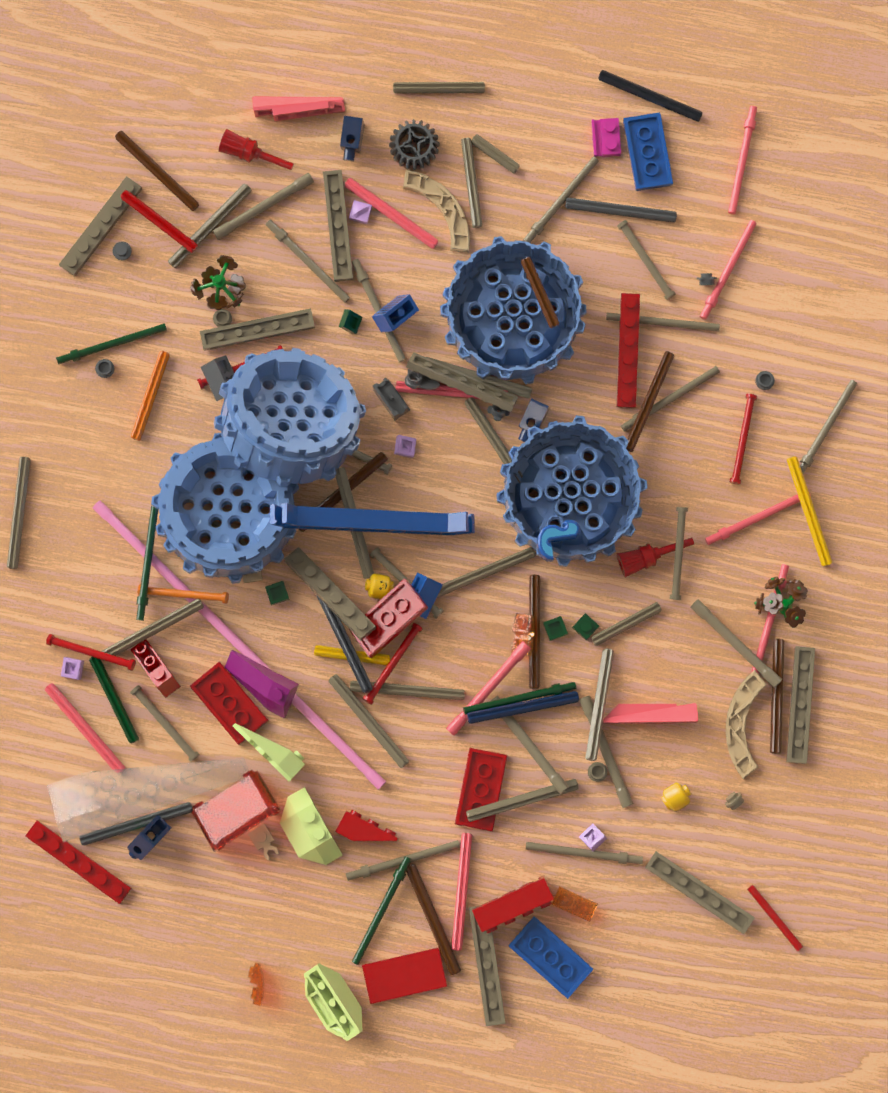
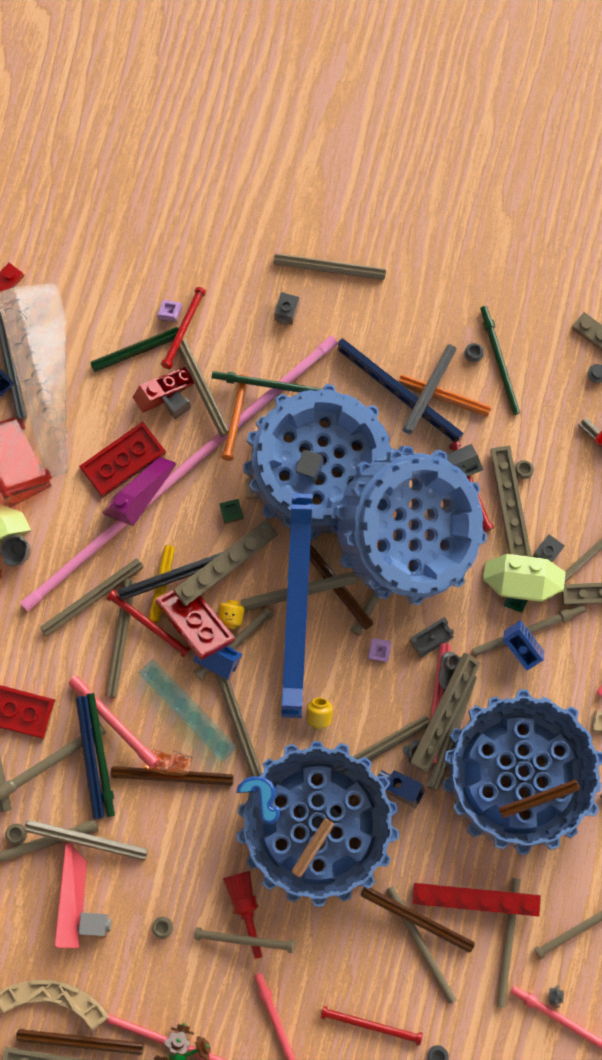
camera: 90 degrees right, 5 degrees down
(66, 552) = (286, 309): none -> dark grey brick
(83, 727) = (110, 320): coral axle -> none
(147, 407) = (429, 389): none -> dark grey axle
(148, 438) = (398, 389): none -> dark blue tile
(164, 723) = (107, 396): dark tan bar -> none
(170, 654) = (176, 404): none -> dark grey panel
(213, 278) = (563, 462): reddish brown plant -> none
(235, 514) = (310, 465): none -> dark grey panel
(279, 757) = (58, 506): yellowish green wedge -> none
(303, 294) = (549, 549): none -> dark grey brick
(328, 798) = (15, 550): none -> dark grey hair
(330, 315) = (524, 577): none -> yellowish green wedge
(469, 497) = (319, 713): none -> yellow head
(472, 621) = (187, 710): none -> clear light blue plate
(555, 628) = (173, 798): dark green plate -> none
(585, 626) = (173, 832): dark green plate -> none
(597, 490) = (312, 848): none -> medium nougat axle
(626, 624) = (172, 876): dark tan axle -> none
(671, 629) = (162, 927): none -> dark tan plate
(674, 690) = (94, 924): none -> light grey brick
(765, 671) = (105, 1030): dark tan piece -> none

